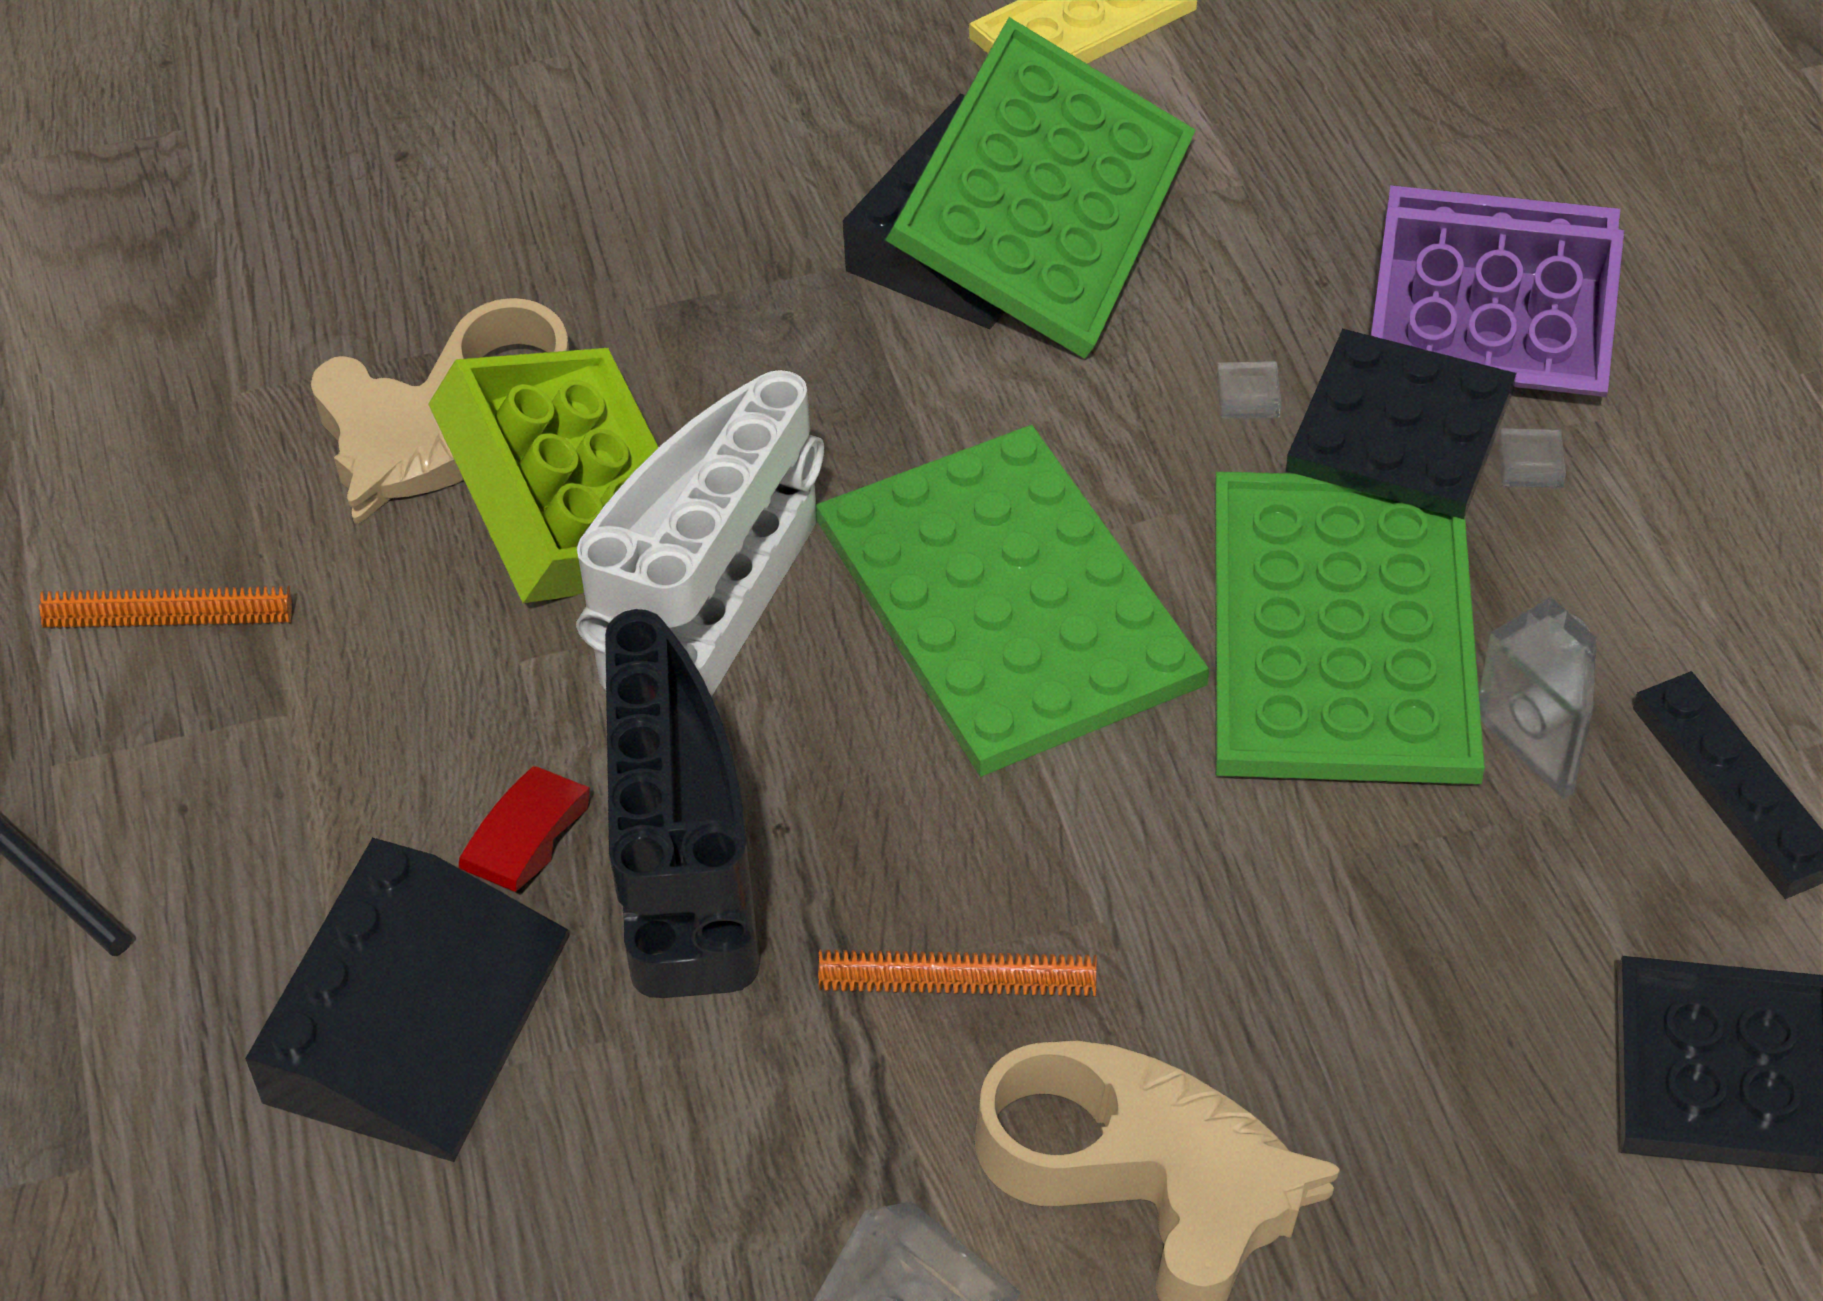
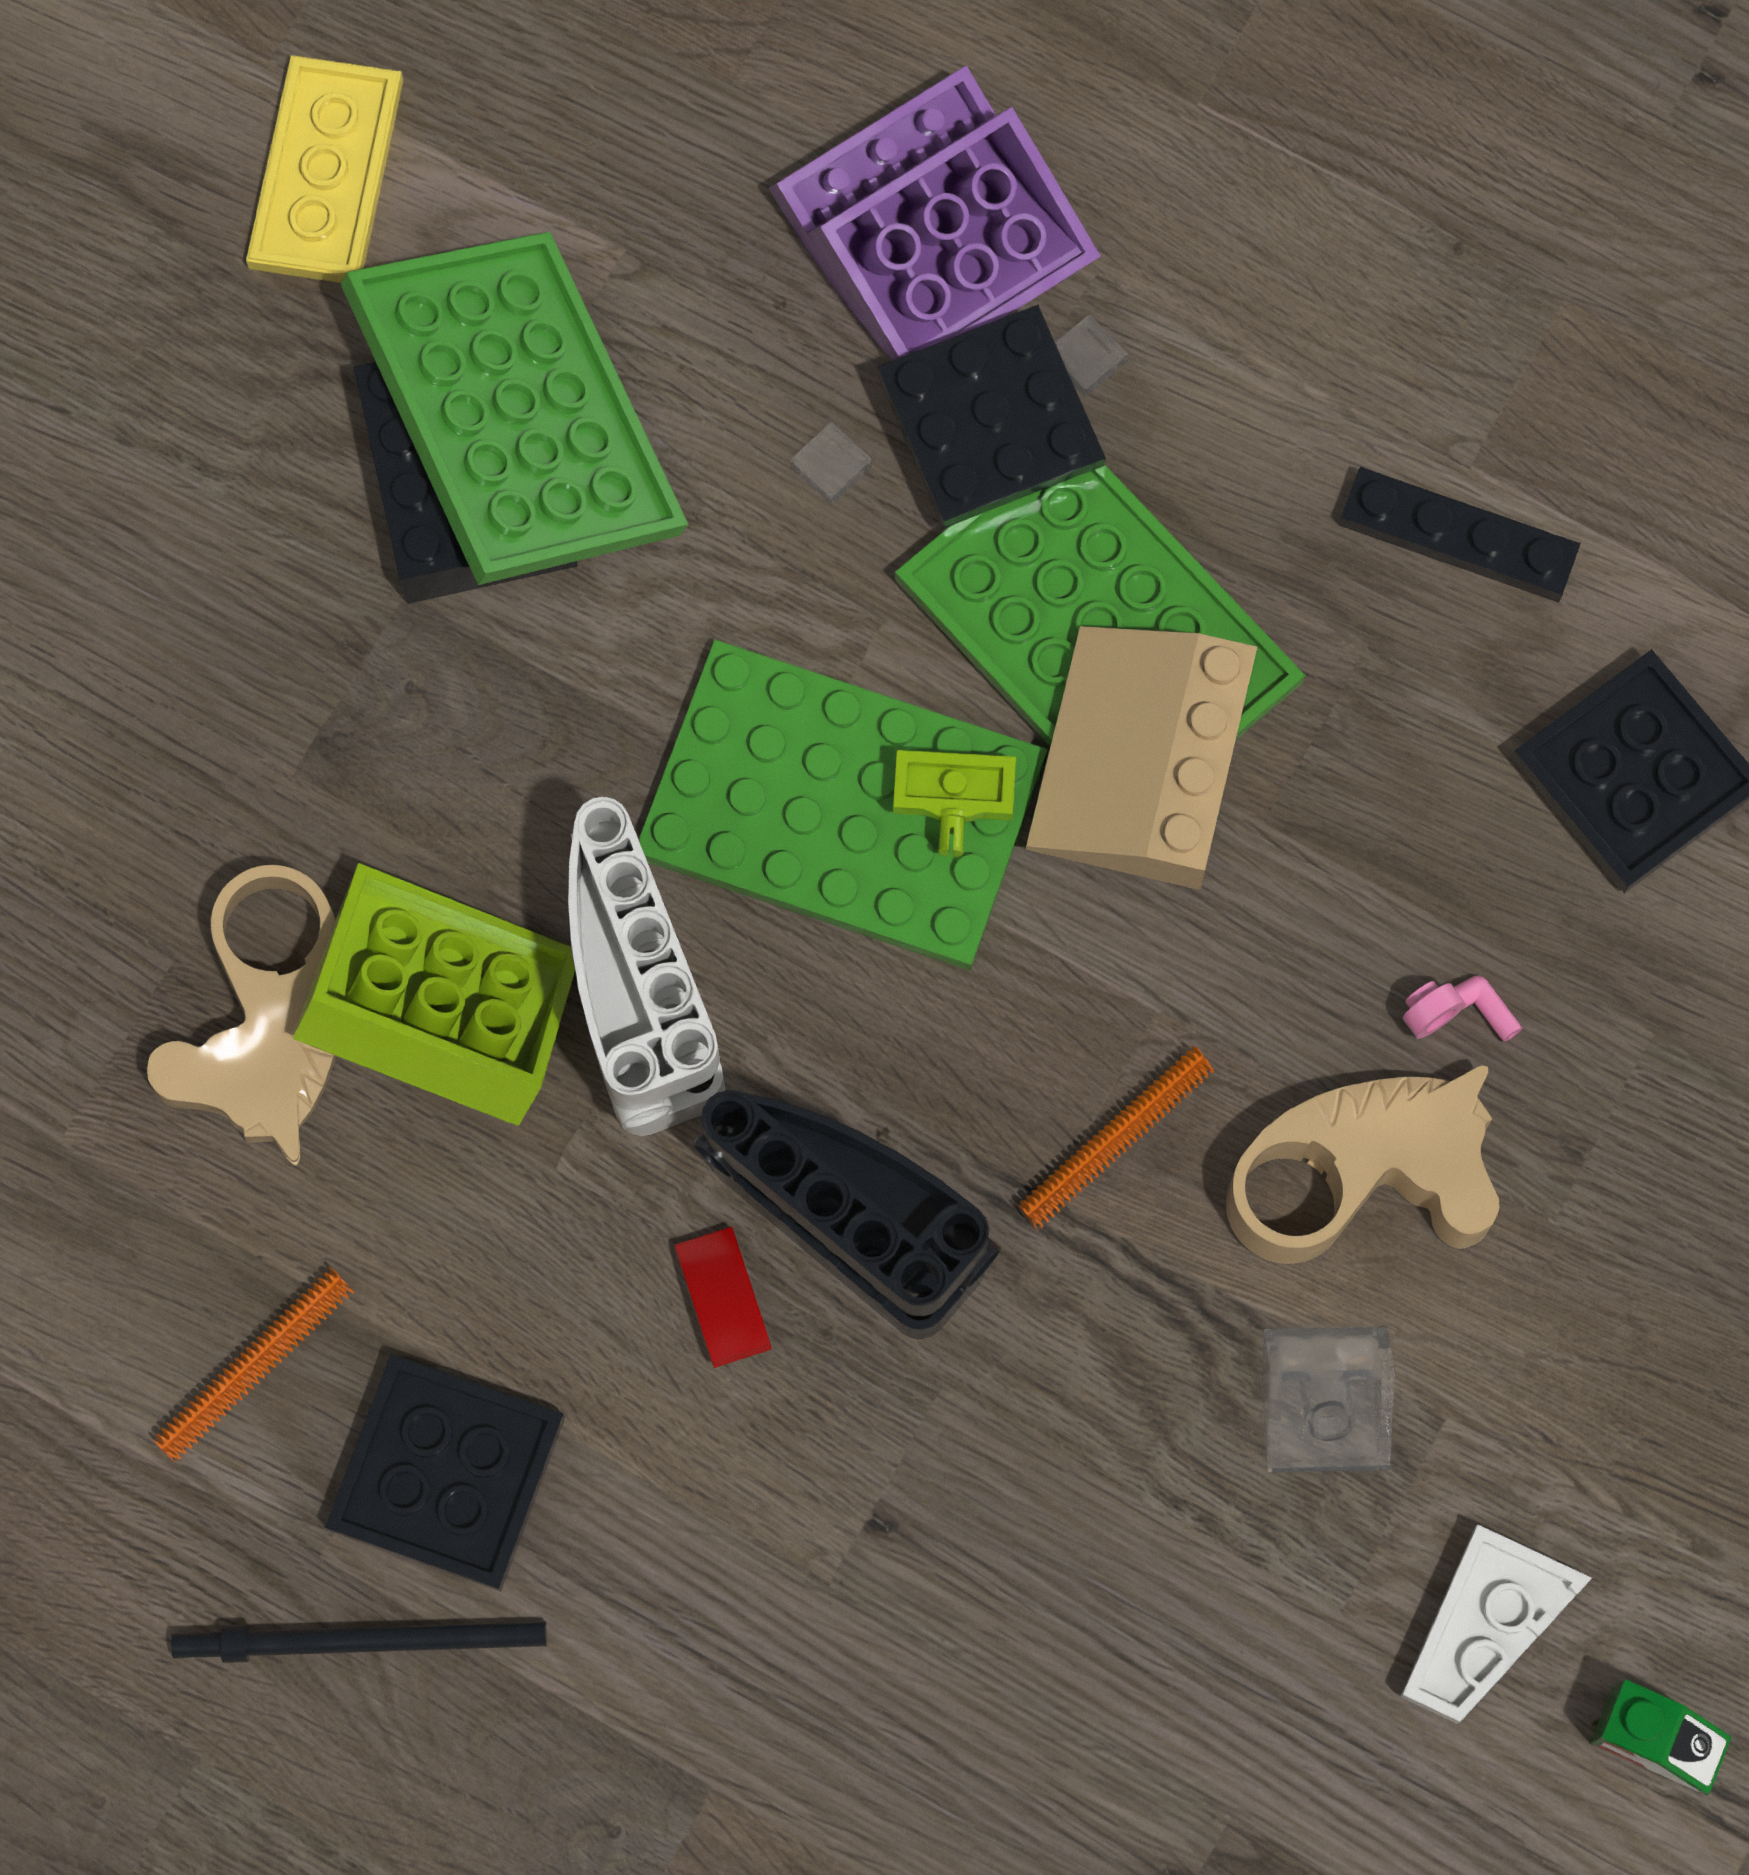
camera: 45 degrees left, 25 degrees up
(192, 775) = (445, 1472): none -> black plate
(406, 1002) = (798, 1489): black slope -> none
(1095, 621) = (954, 790): none -> lime plate
(1285, 715) = (1142, 752): none -> tan slope
(1343, 1095) = (1435, 1006): none -> bright pink plate
(1541, 690) = (1306, 583): clear slope -> none

